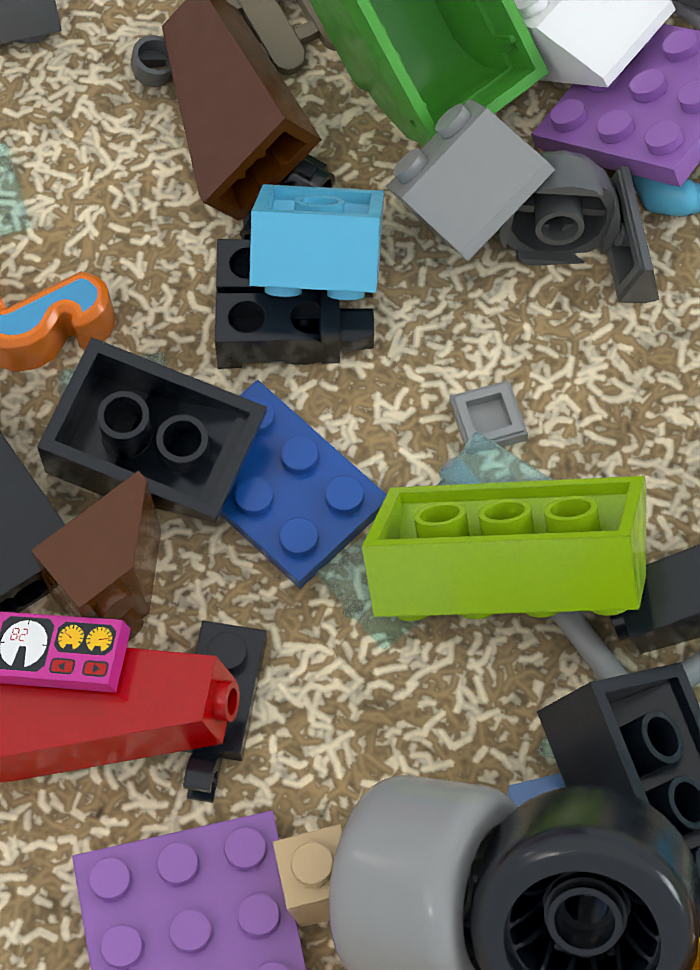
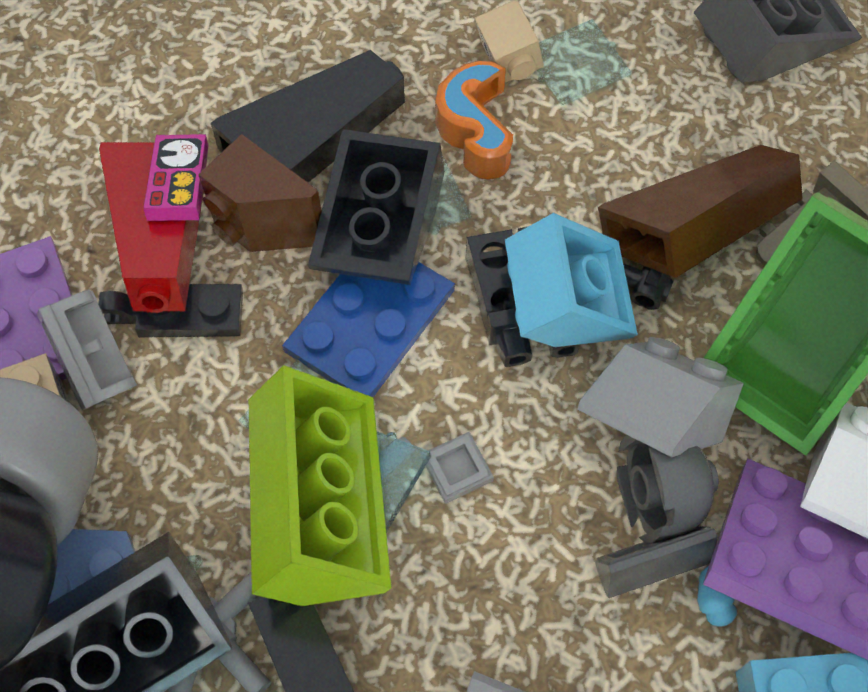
camera: 75 degrees right, 0 degrees up
(147, 54) = (736, 140): dark grey hinge -> none
(268, 807) = (85, 348): none -> light grey hinge

